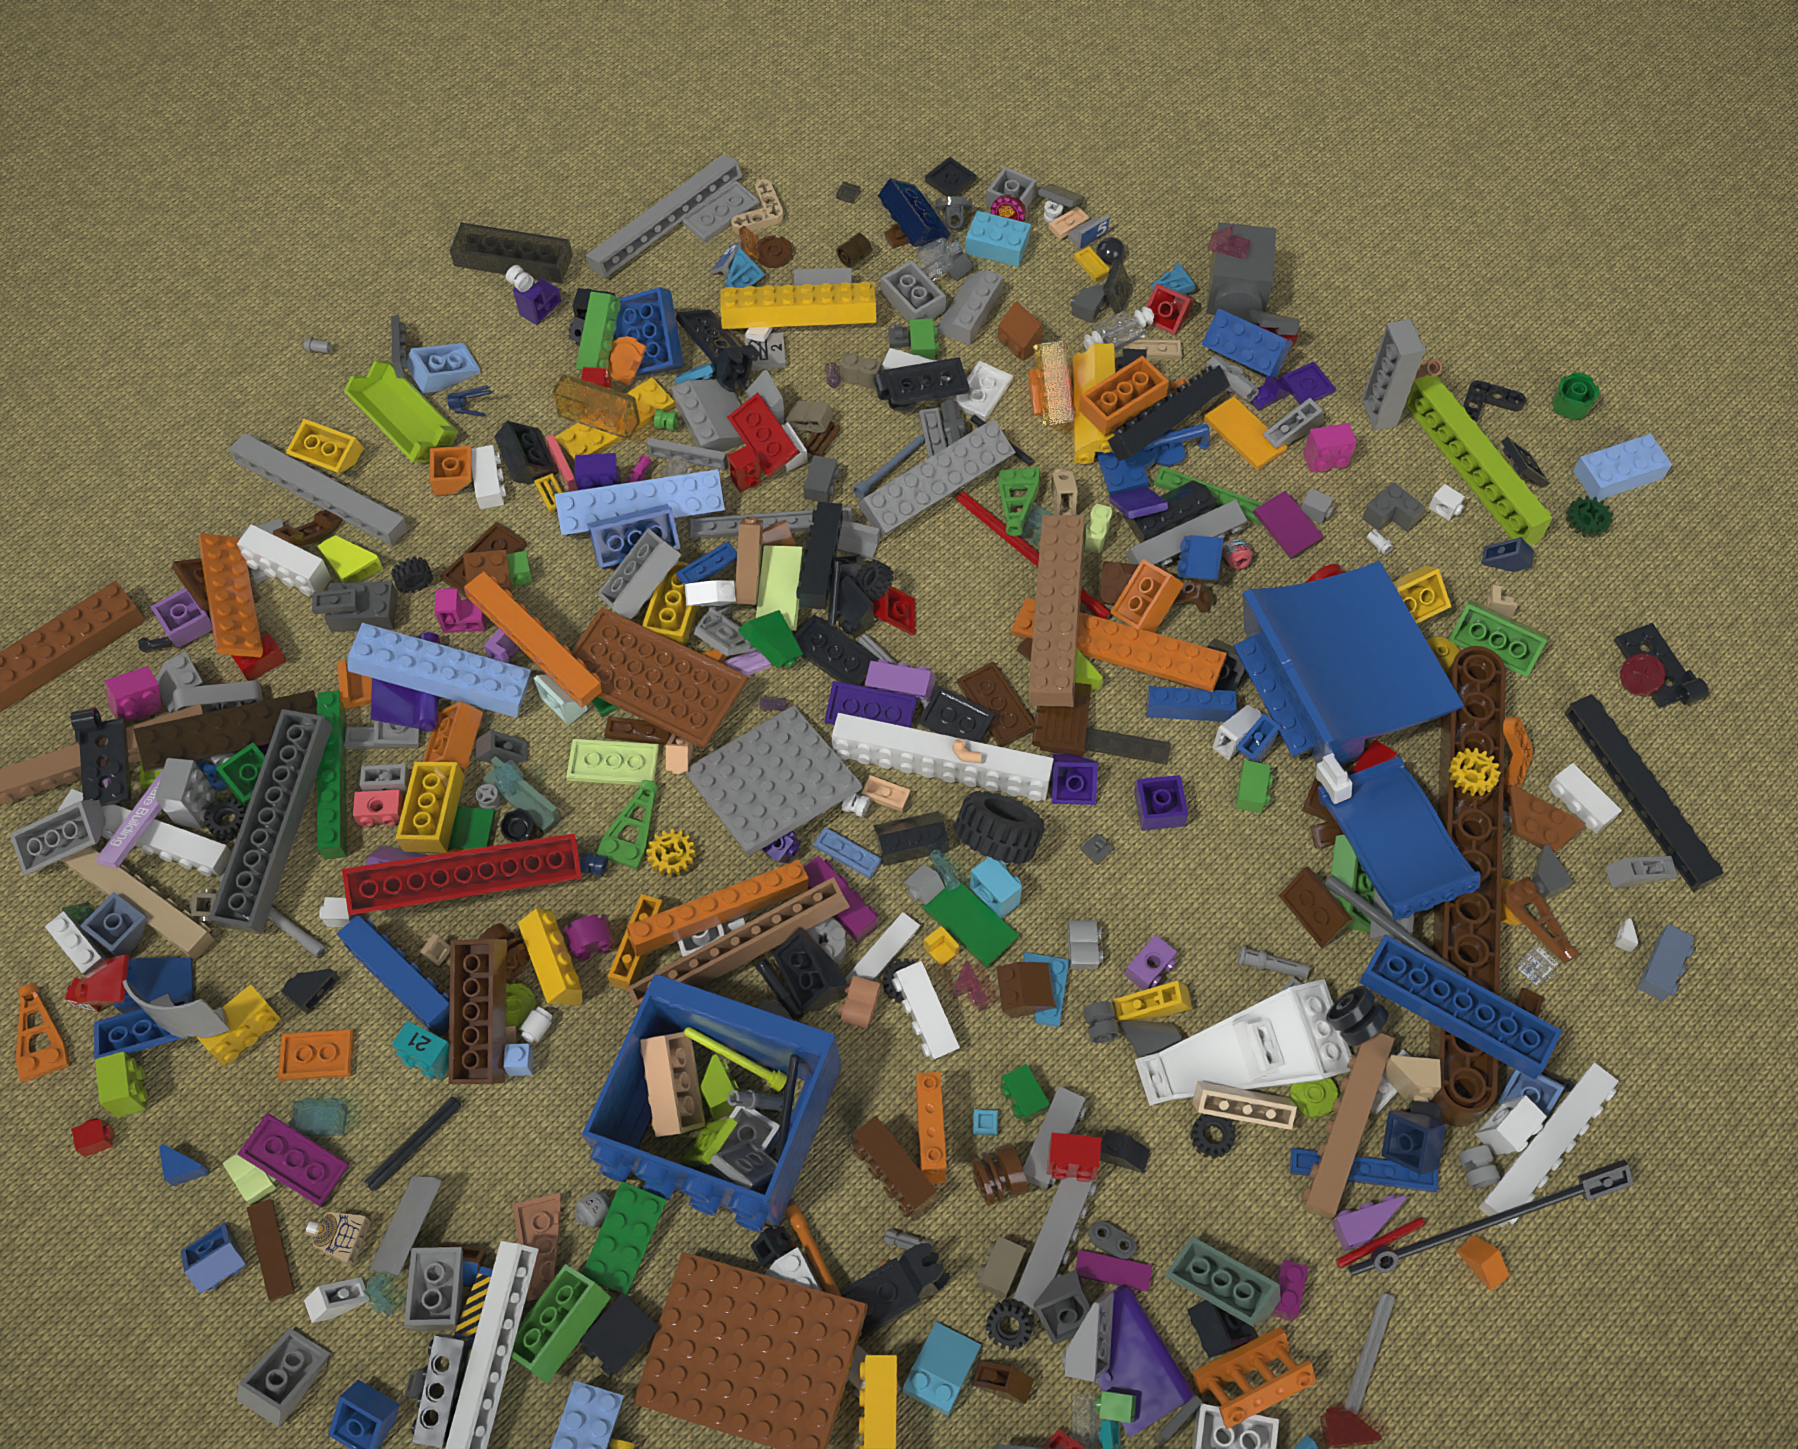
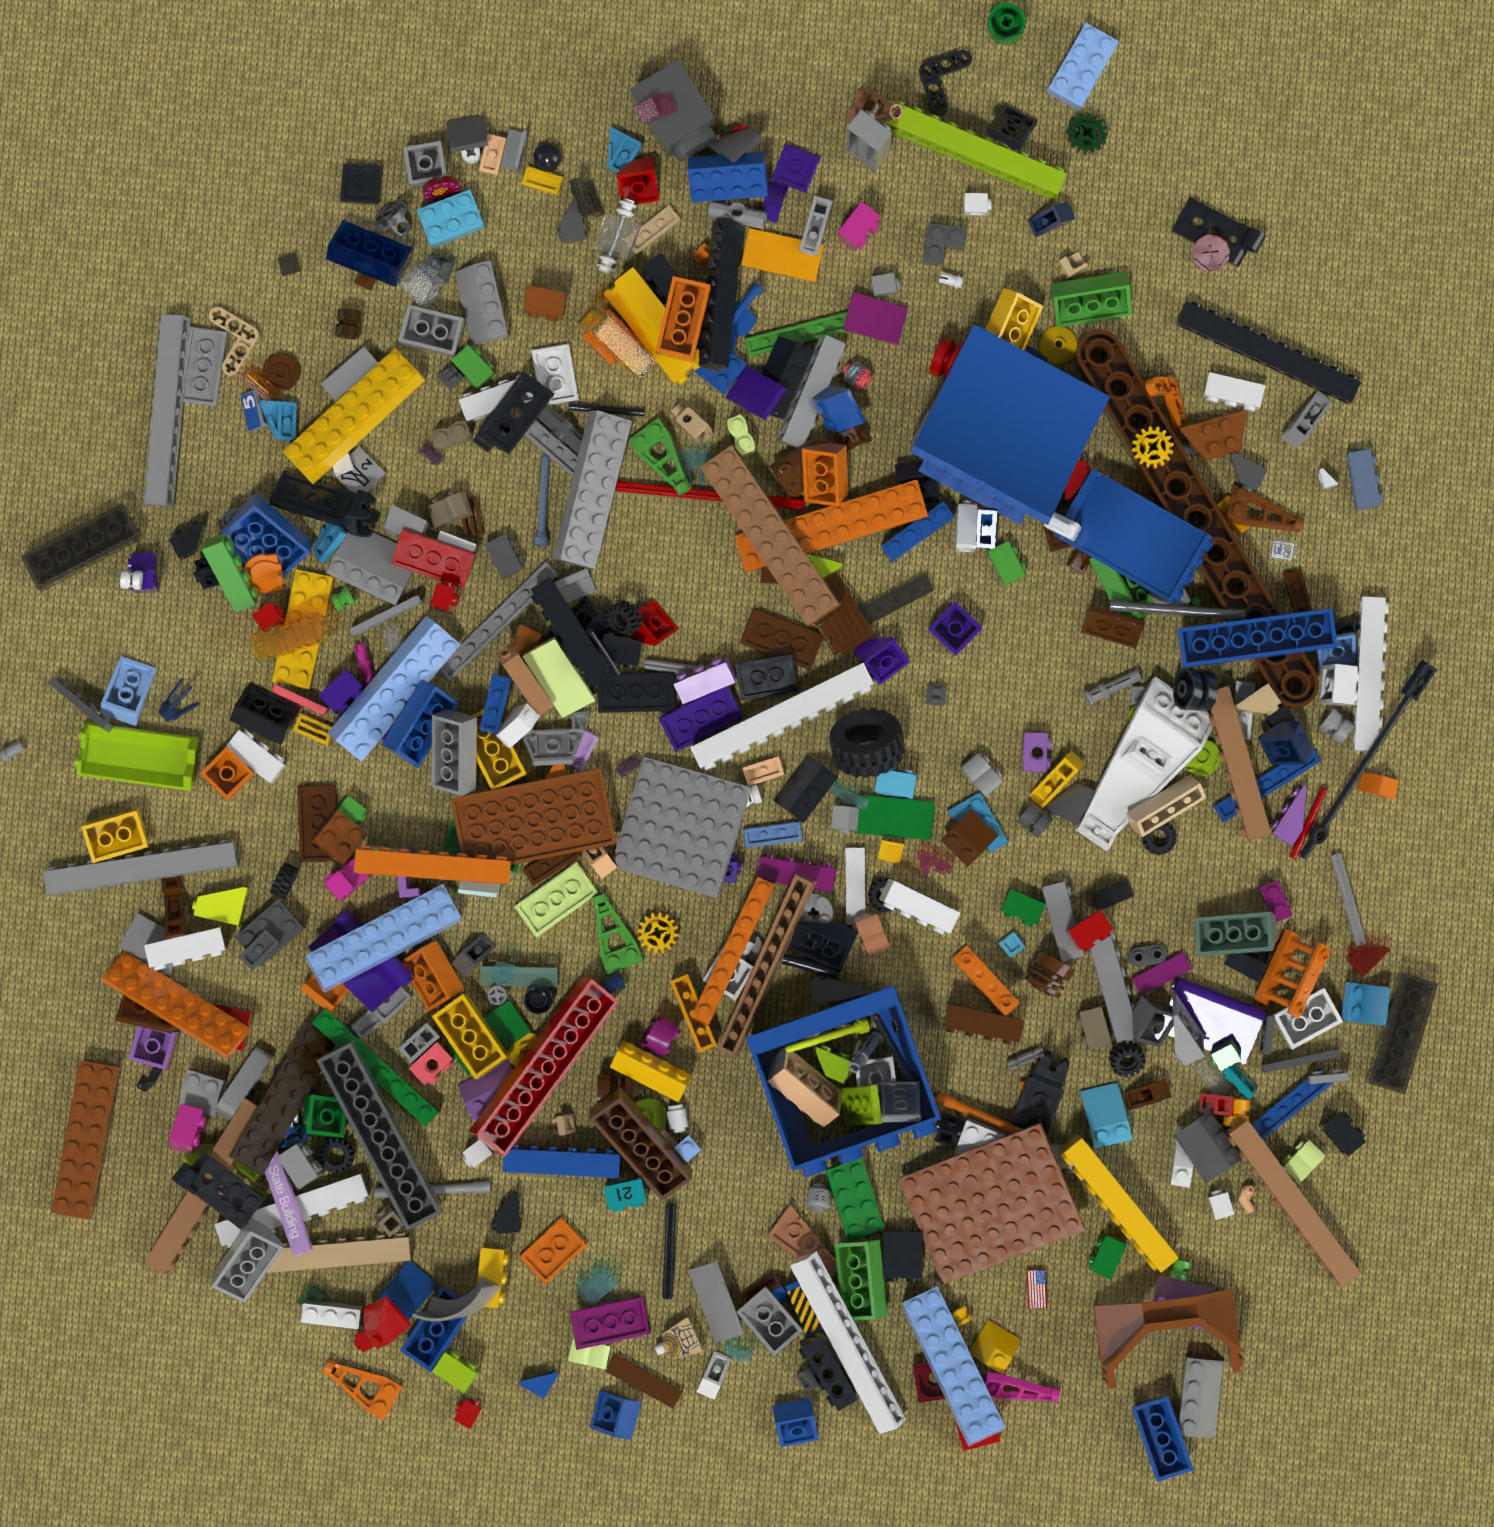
camera: 30 degrees left, 25 degrees up
(115, 925) = (344, 1283): sand blue slope -> none
(282, 1377) = (725, 1440): light grey slope -> none
(772, 639) = (589, 721): green slope -> none
(963, 753) = (802, 710): light nougat arm -> none

